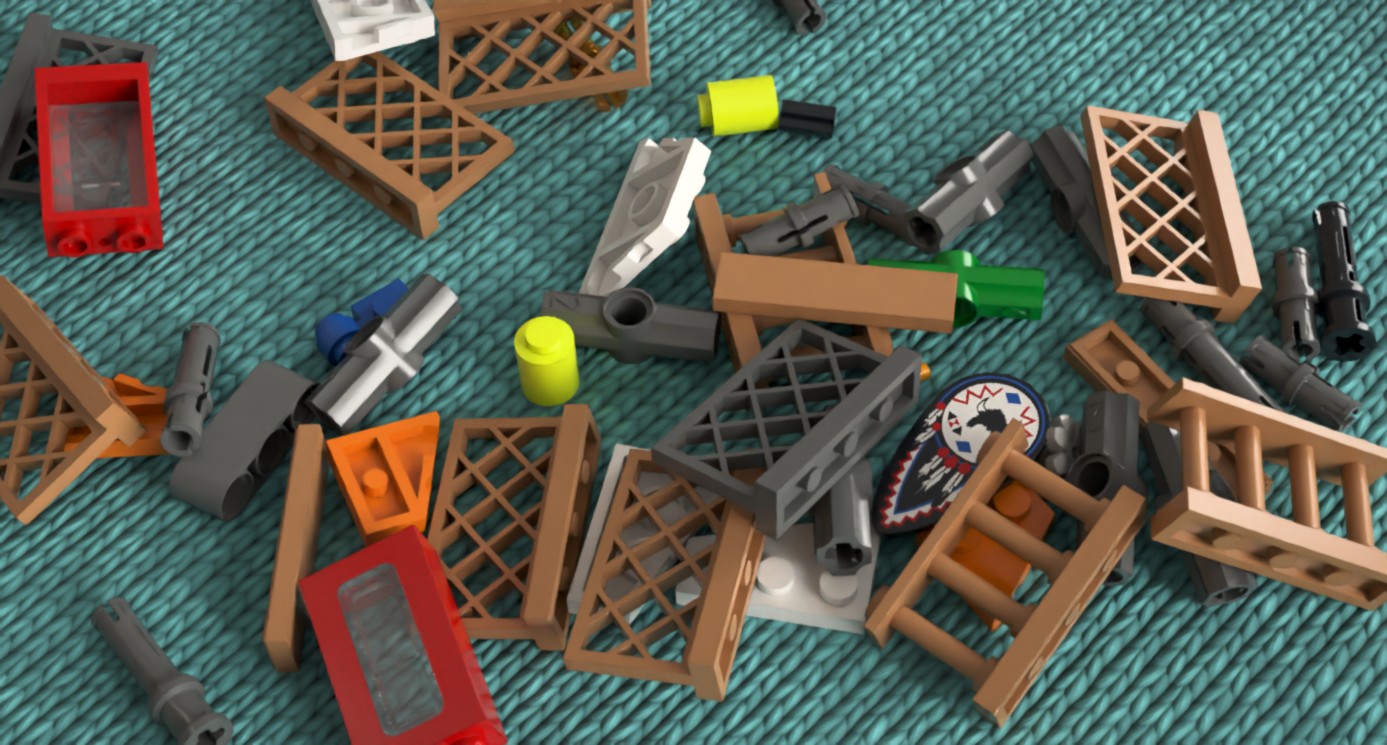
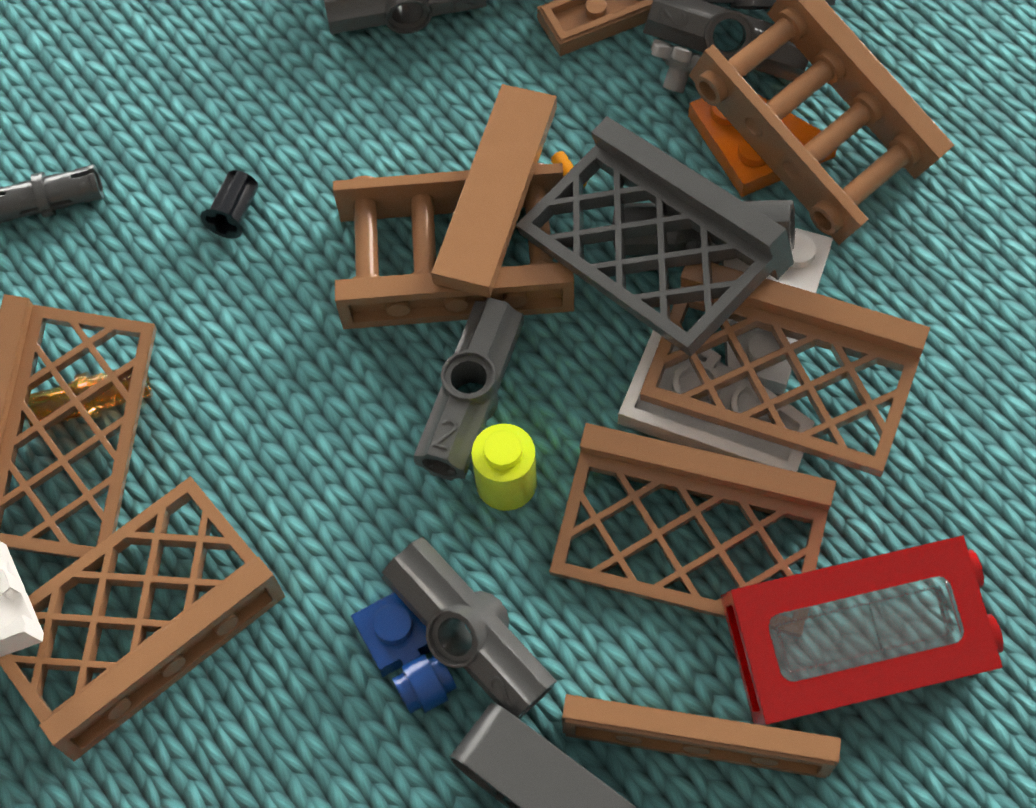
camera: 80 degrees left, 10 degrees up
(387, 474) = (619, 641): orange wing -> none
(647, 211) = (334, 349): white wing -> none
(739, 106) = (202, 254): neon yellow brick -> none
(800, 223) = (404, 206): dark grey pin -> none
(875, 193) = (353, 161): dark grey pin -> none
(944, 446) = (662, 106): shield -> none
(967, 192) = (378, 78): dark grey piece -> none
(983, 288) = (494, 63): green piece -> none

